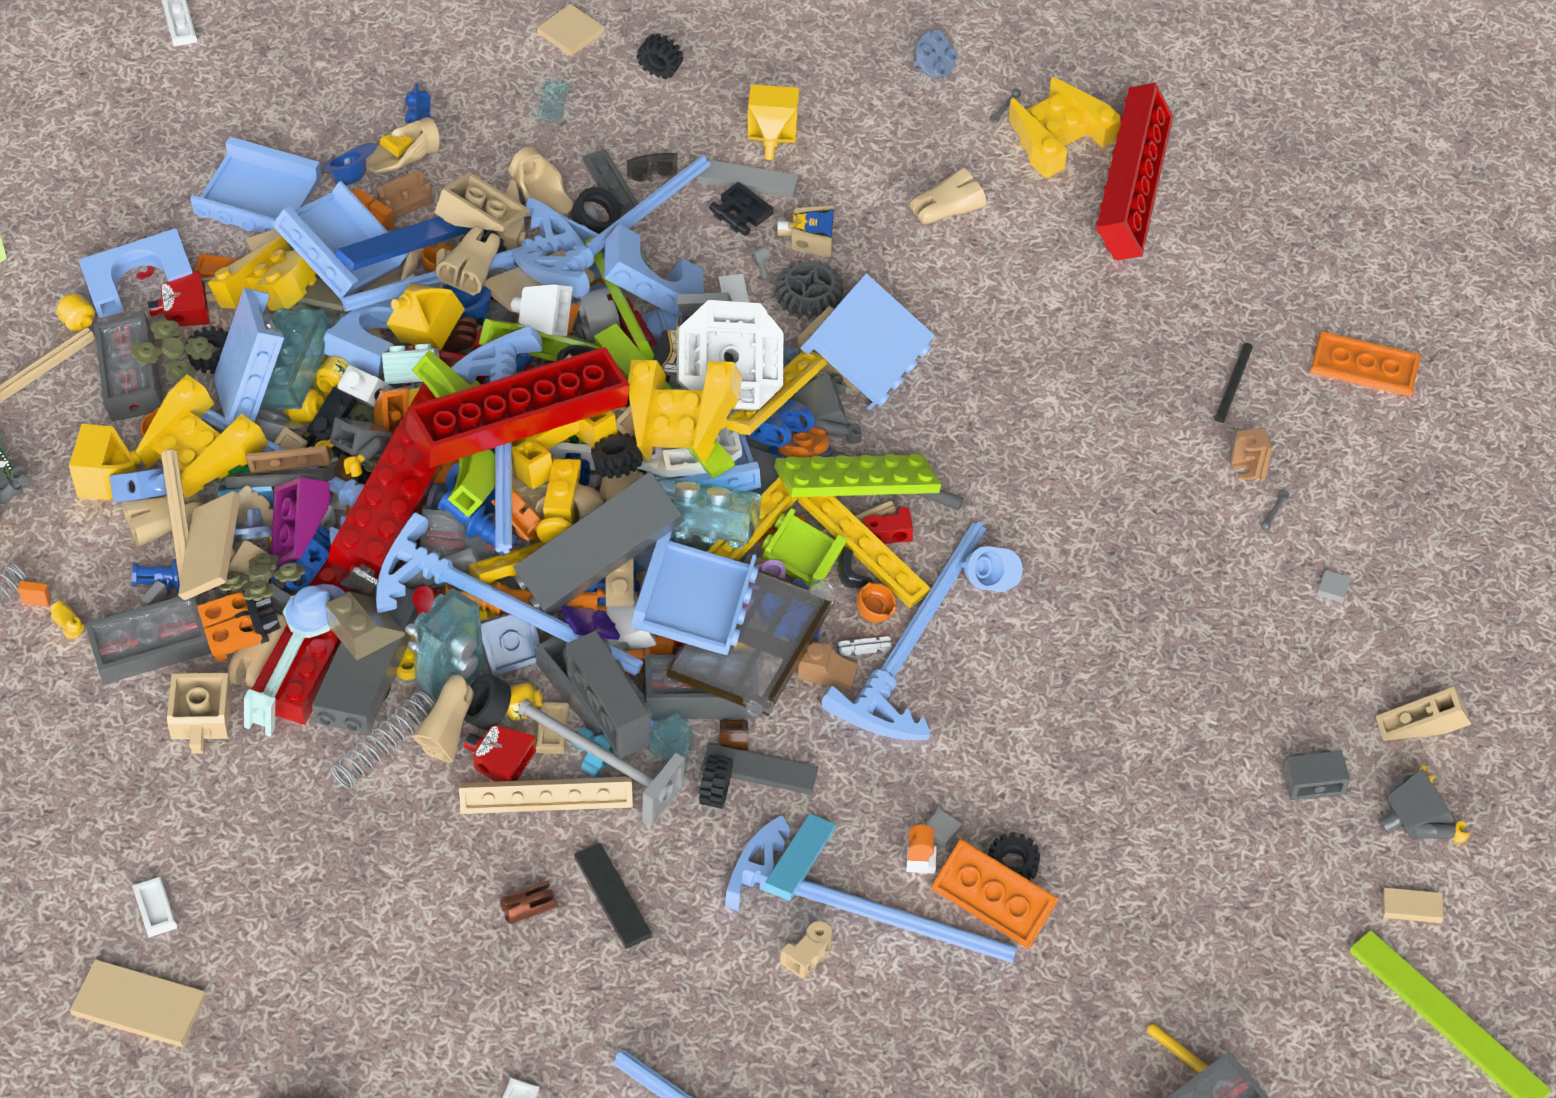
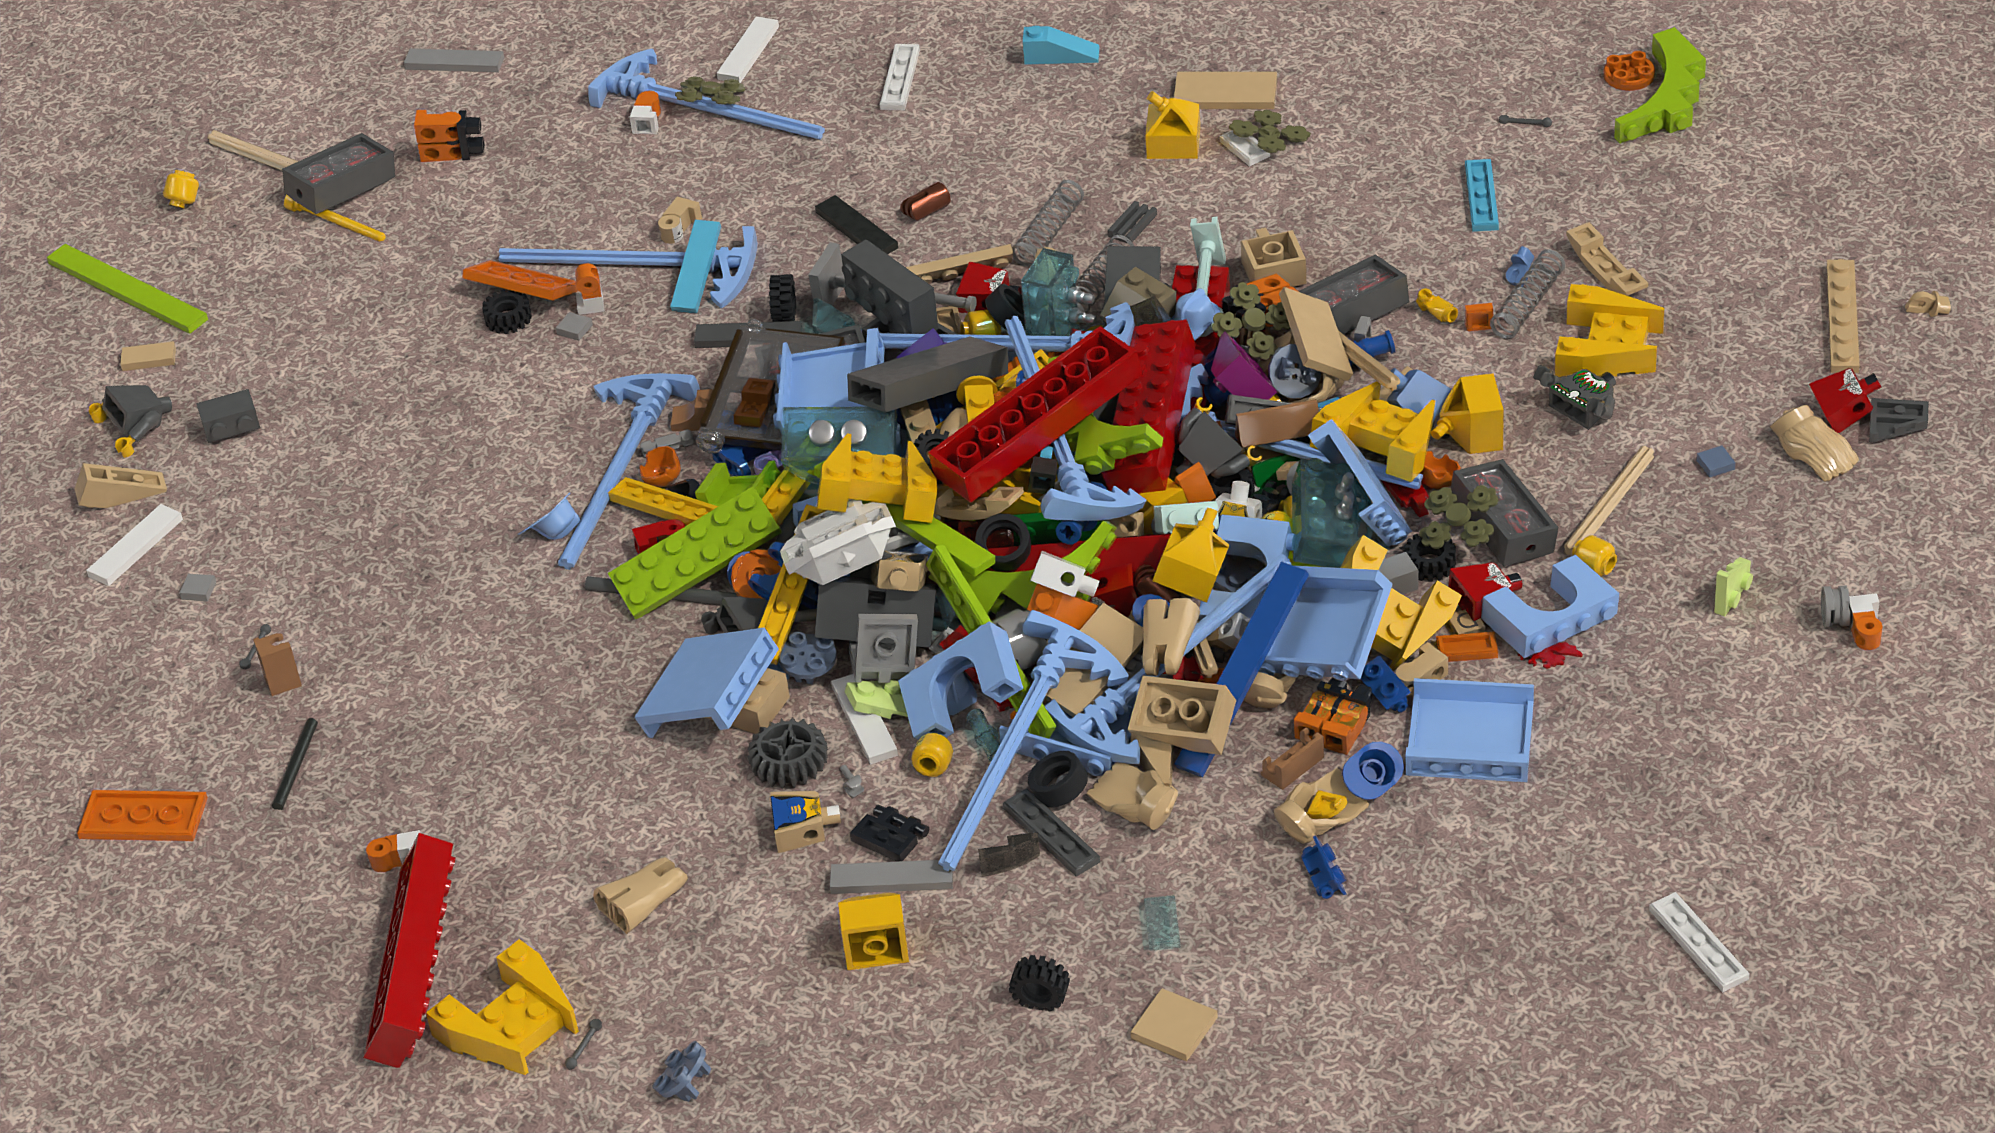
camera: 175 degrees right, 10 degrees down
(121, 910) = (1268, 134): none -> olive plant
(225, 932) = (1172, 128): none -> yellow piece
(334, 807) = (1128, 221): none -> dark grey tile
(372, 870) = (1032, 247): none -> light grey piece
(692, 252) = (932, 754): none -> yellow head
(772, 608) = (755, 402): none -> reddish brown slope
(1144, 275) = (390, 850): none -> orange leg
(1401, 652) = (134, 545): none -> white tile

